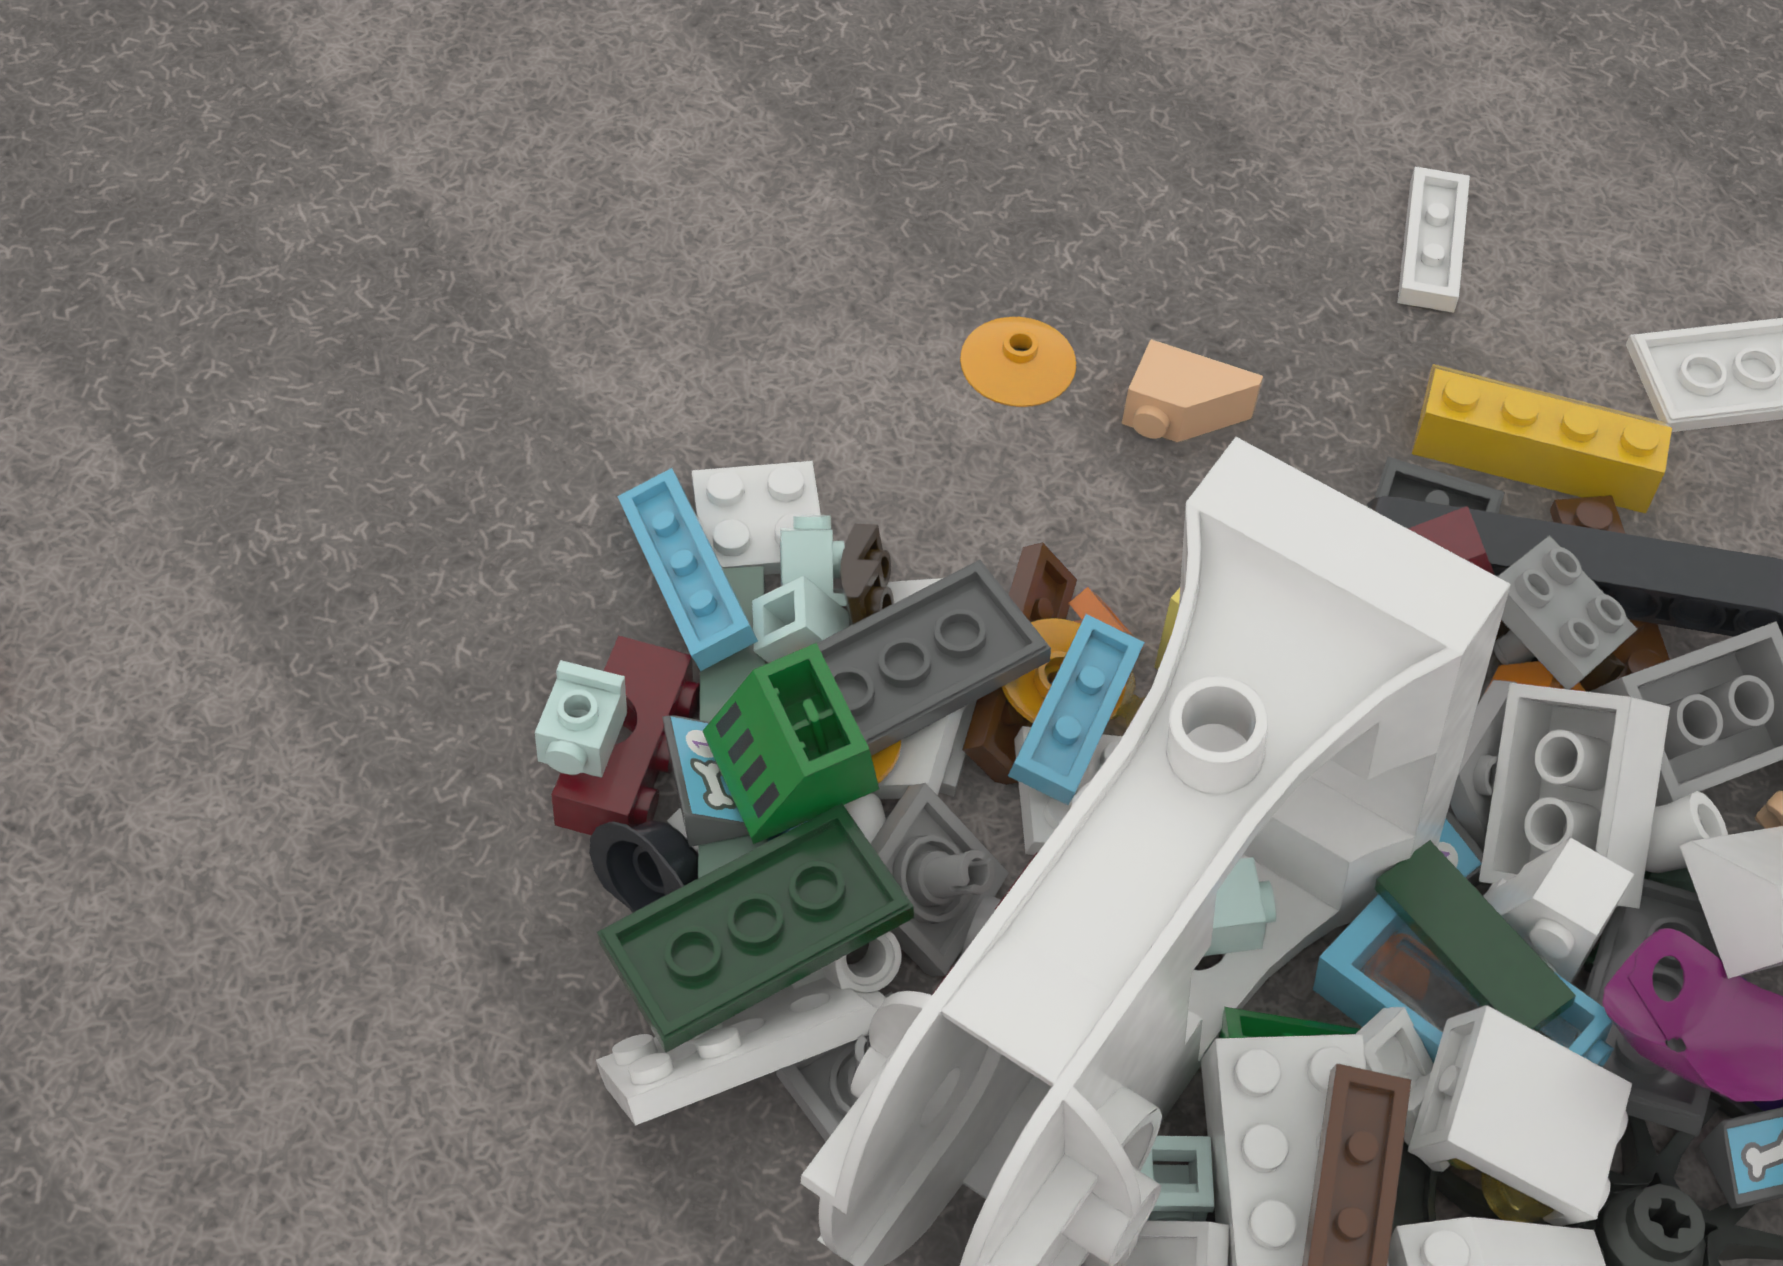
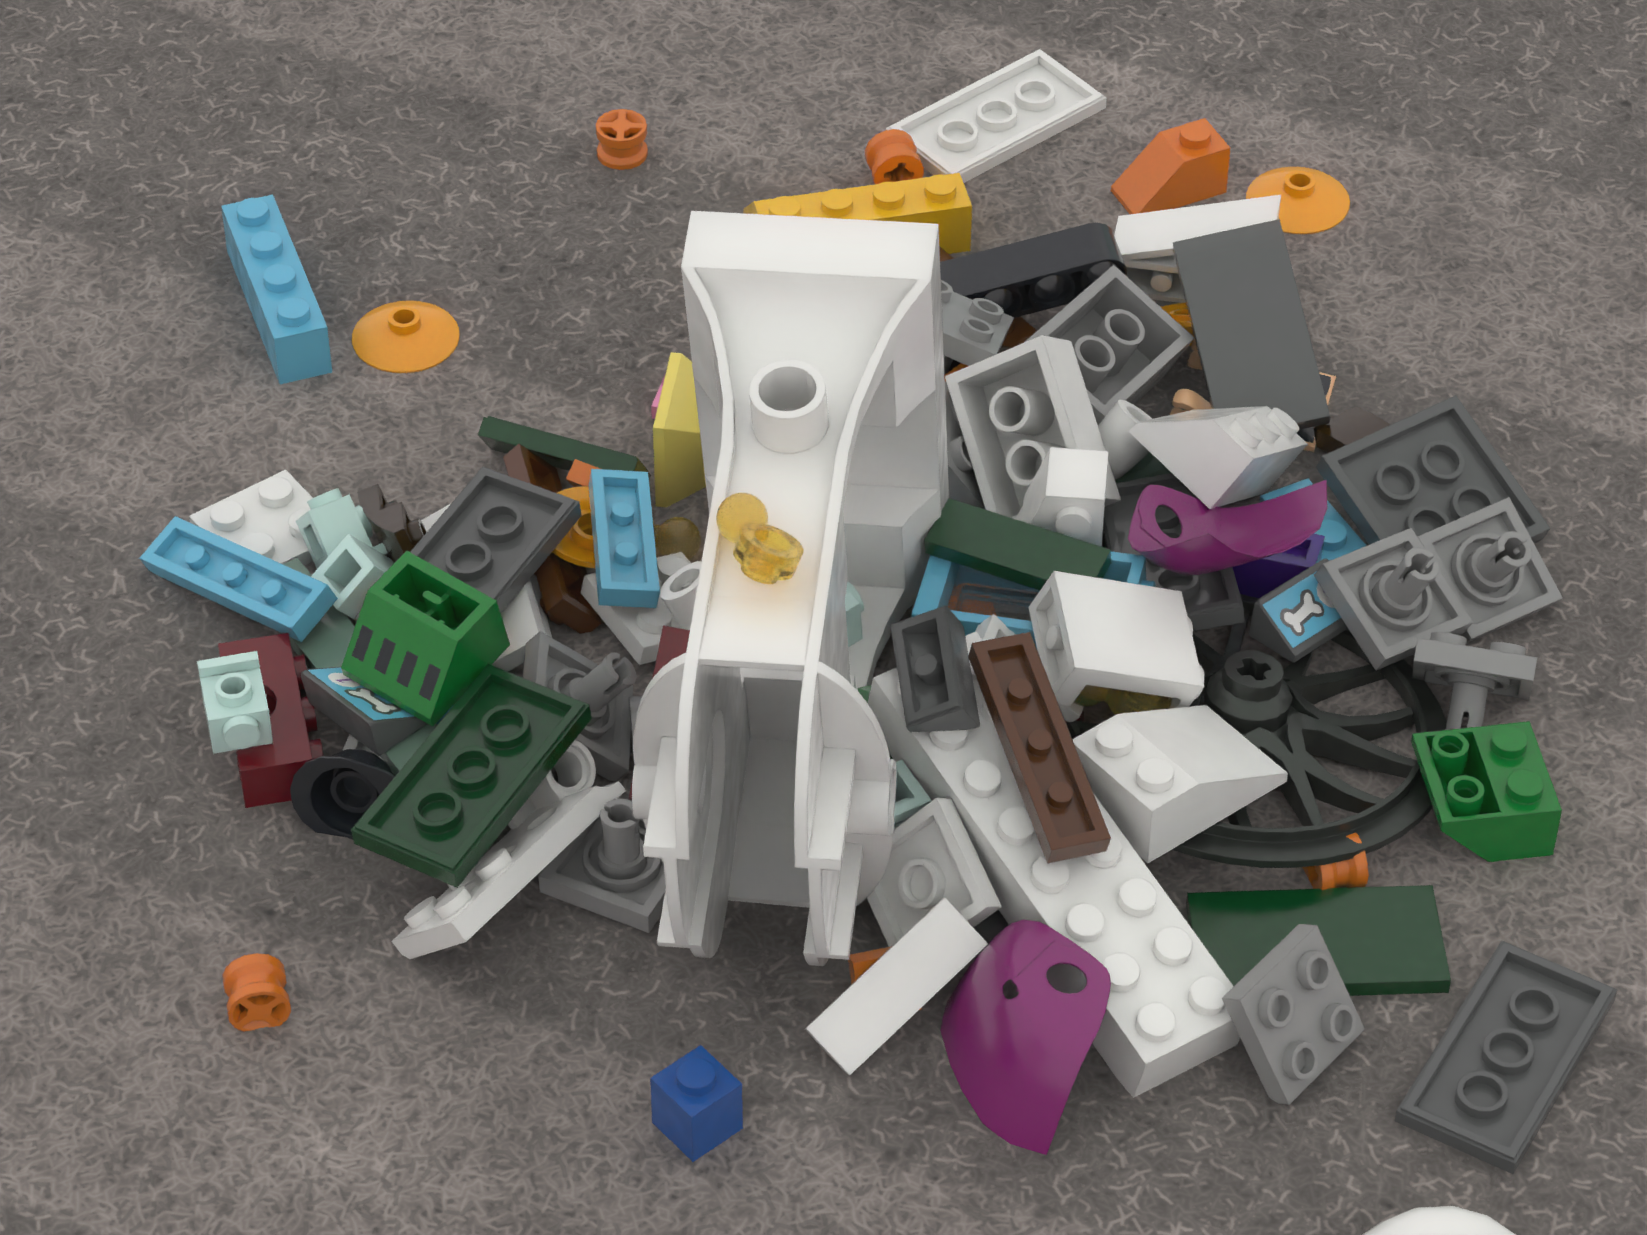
camera: 25 degrees left, 10 degrees down
(425, 1057) = (256, 992): none -> orange wheel
(915, 260) = (276, 289): none -> medium azure brick
(1085, 912) = (761, 549): none -> clear yellow plate
(1089, 569) = (553, 448): none -> dark green tile
(1187, 394) = (564, 301): light nougat slope -> none
(1282, 1073) = (935, 672): none -> dark grey slope
(1345, 222) = (621, 139): none -> orange wheel
(1434, 239) = (690, 117): white plate -> none
(1616, 377) = (893, 157): none -> orange wheel

